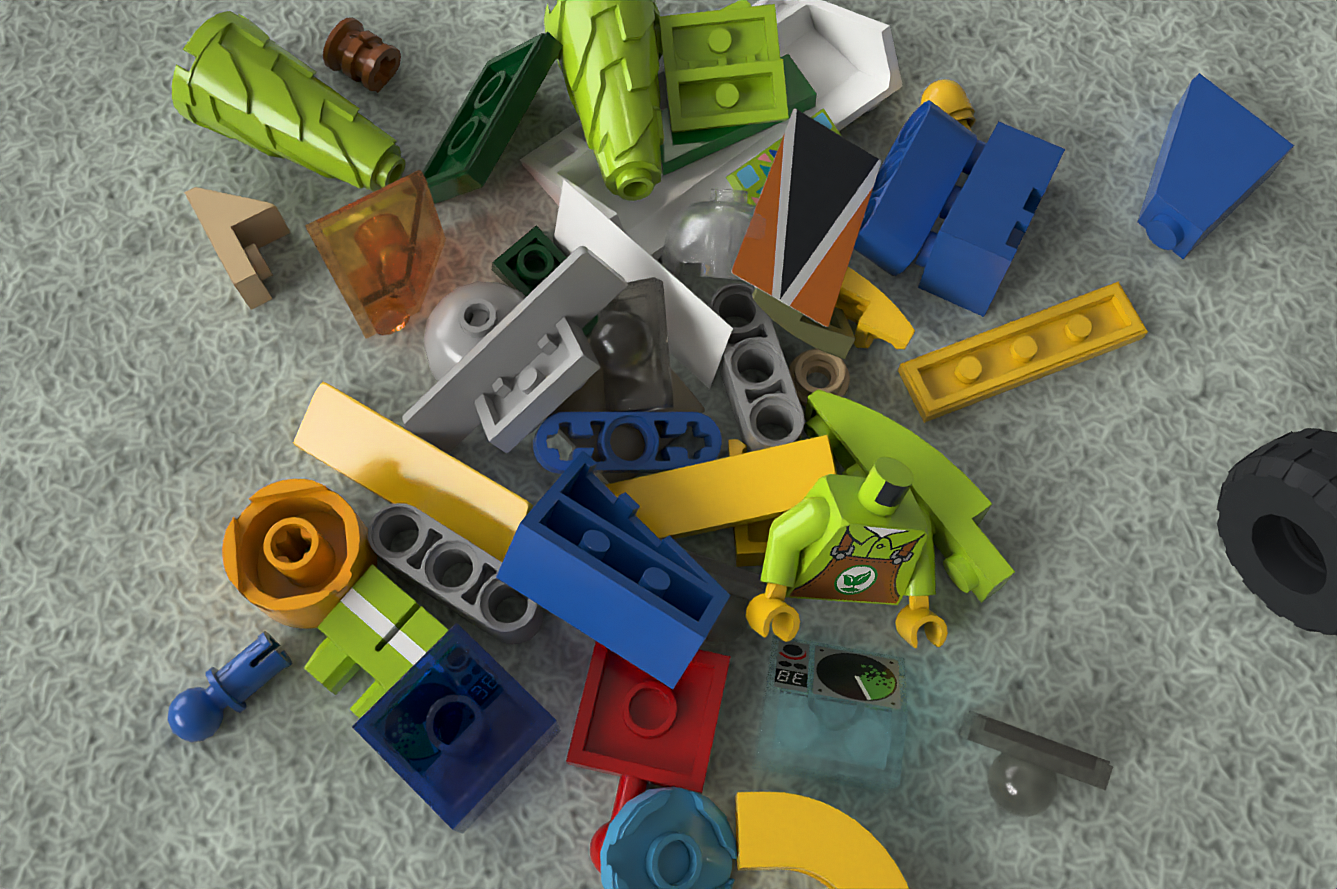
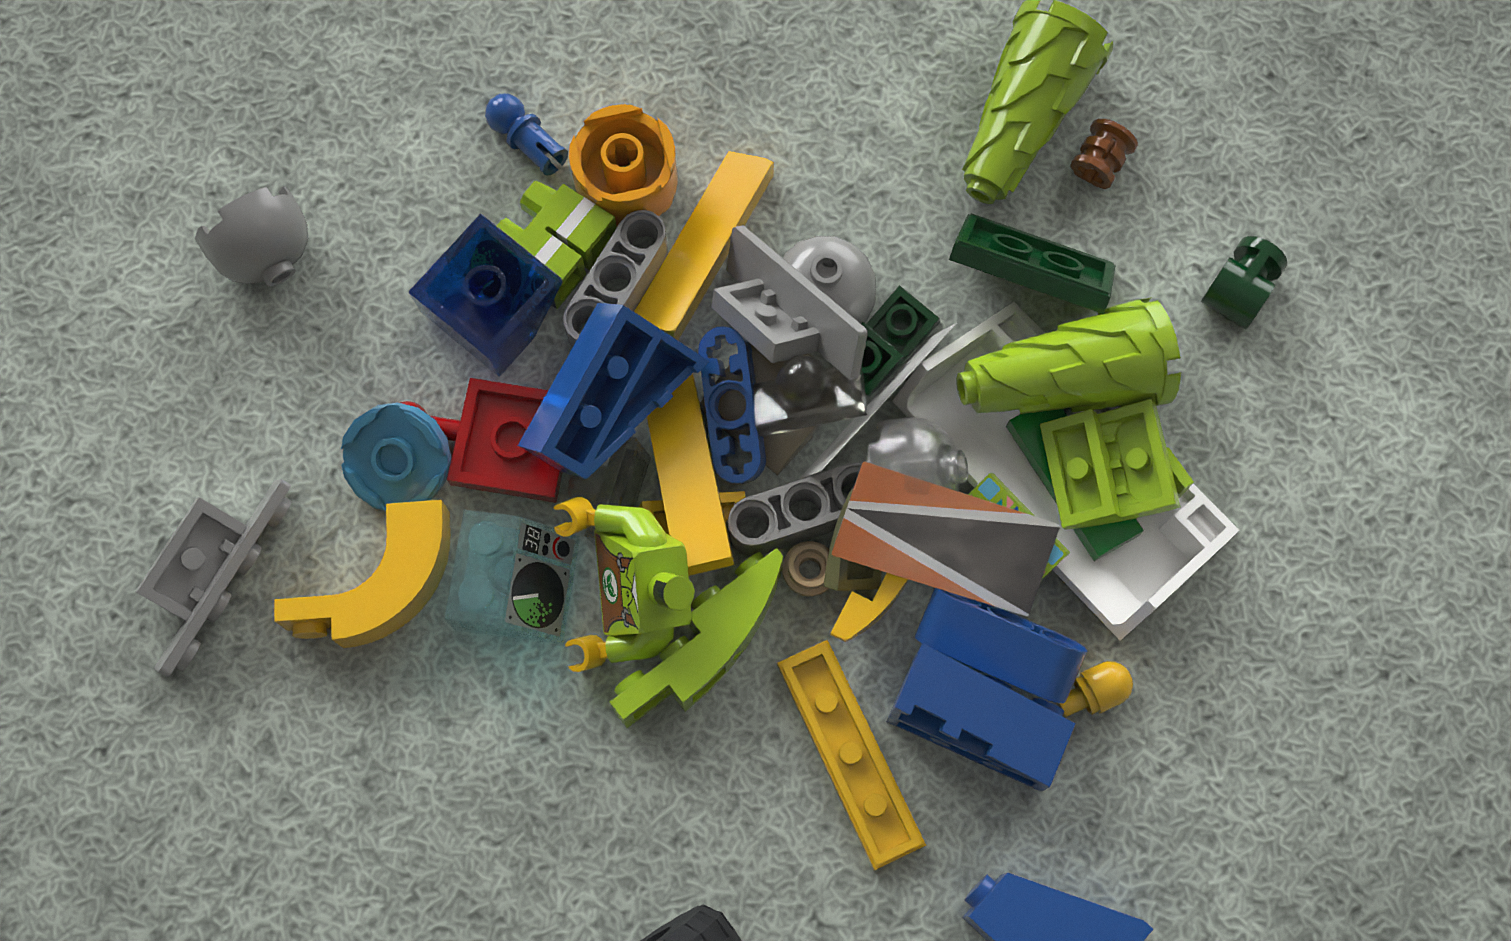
camera: 85 degrees right, 5 degrees up
(237, 231) = (906, 71): tan slope -> none
(382, 252) = (886, 192): clear orange slope -> none
(1025, 772) = (476, 738): clear smoke tile -> none

